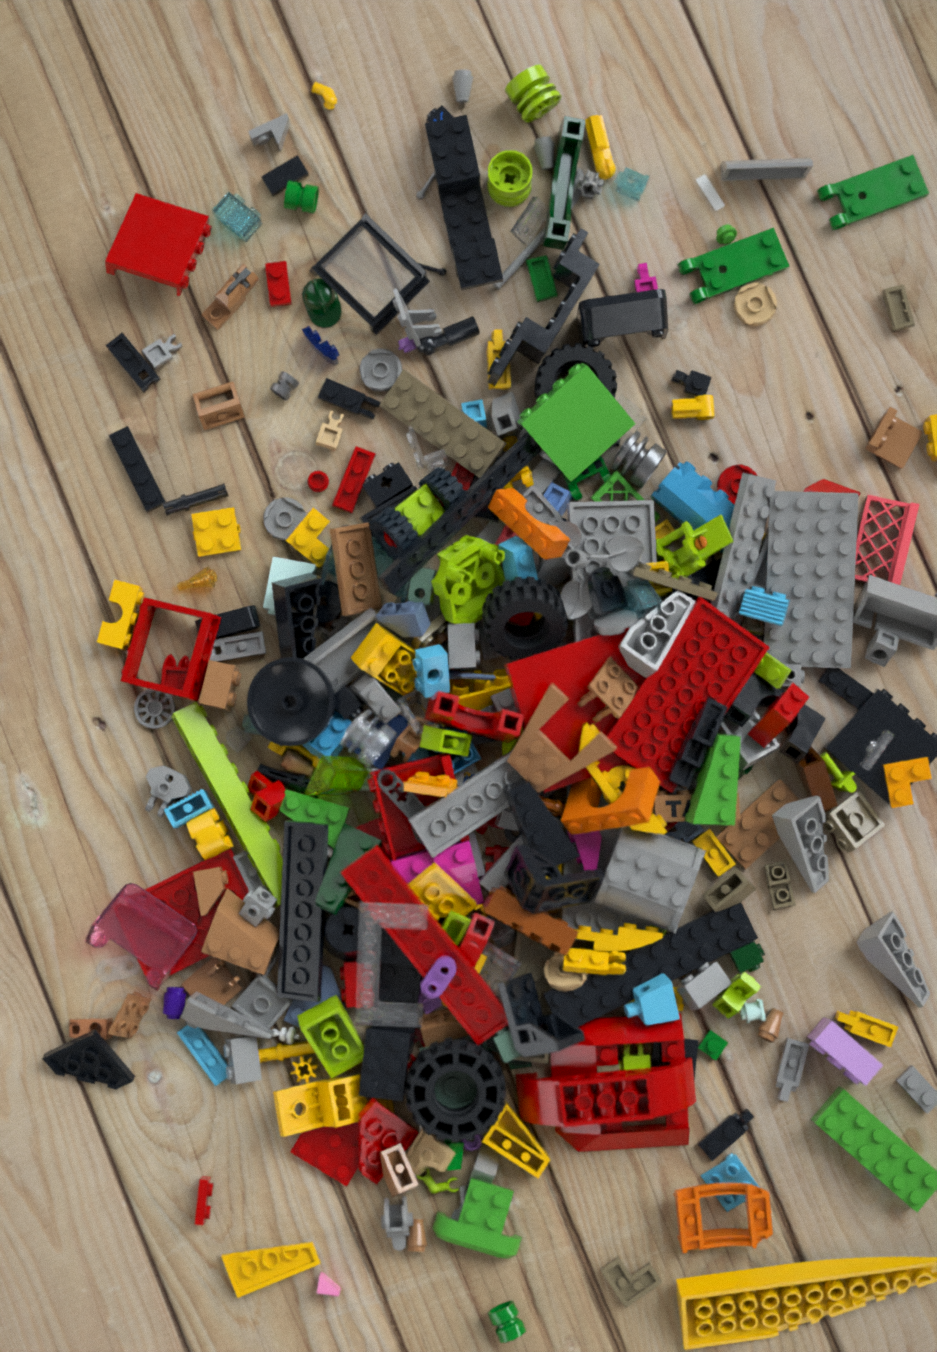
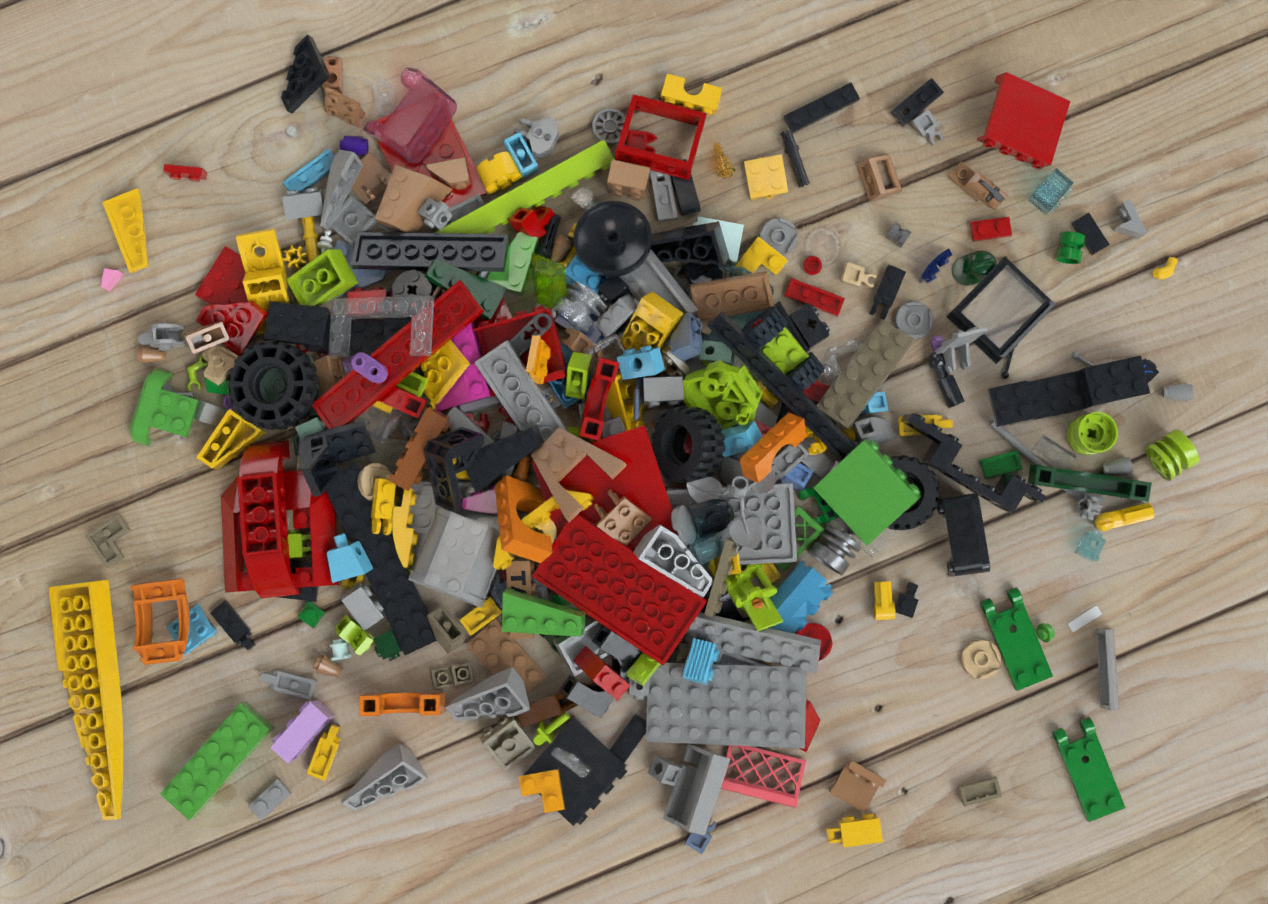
camera: 90 degrees right, 0 degrees up
(469, 529) = (767, 396): none -> yellow pin
(506, 1319) = (73, 433): green wheel -> none
(645, 282) = (997, 557): dark pink plate -> none
(696, 743) = (575, 598): black slope -> none
(812, 964) = (402, 702): none -> orange arch

